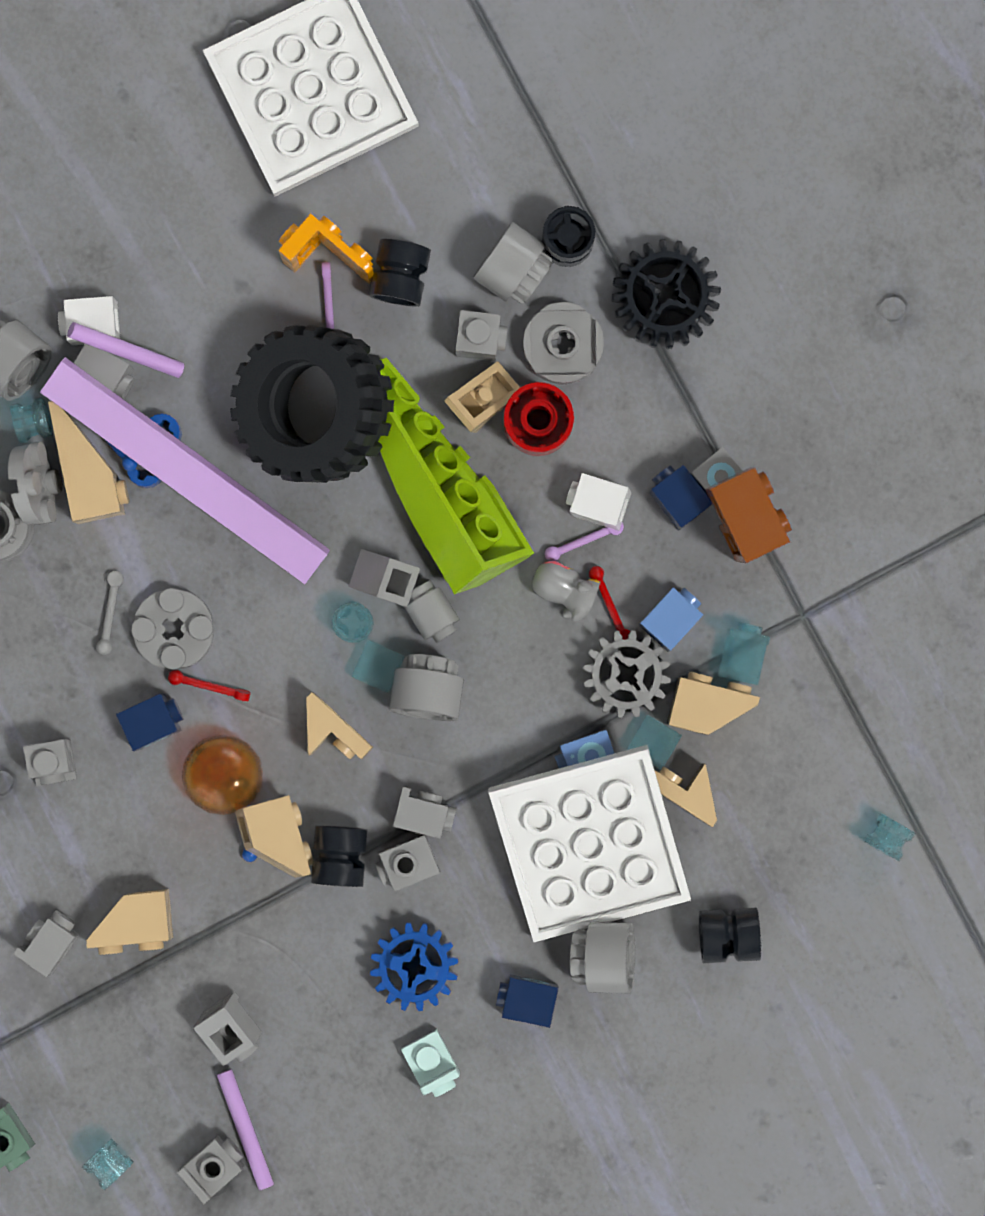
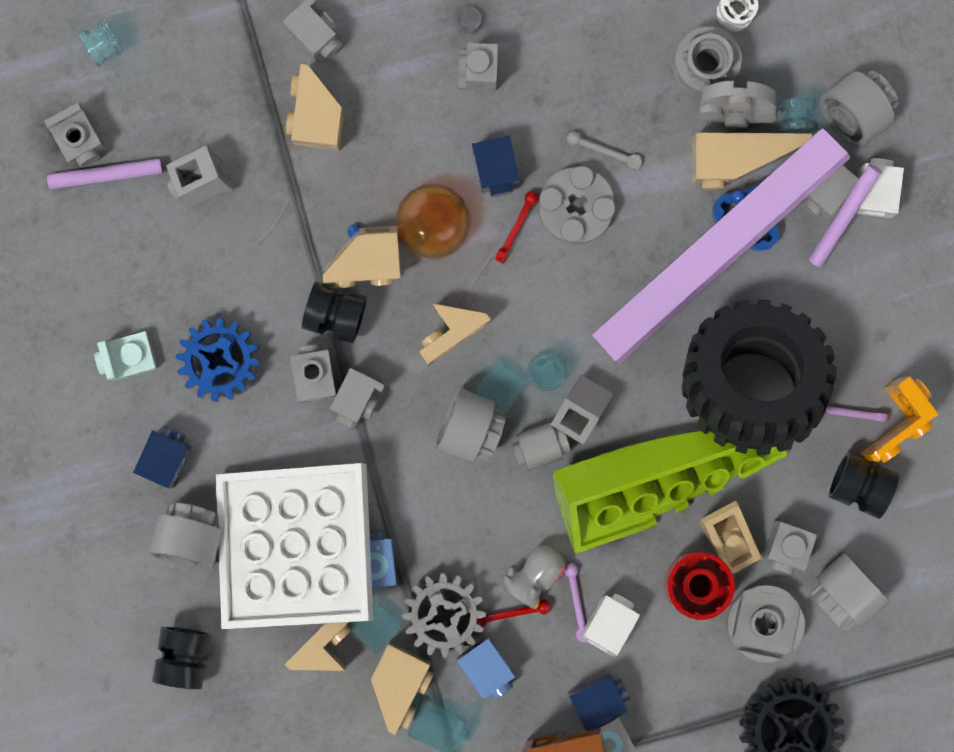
camera: 105 degrees right, 0 degrees up
(568, 236) = (865, 651): black wheel -> none

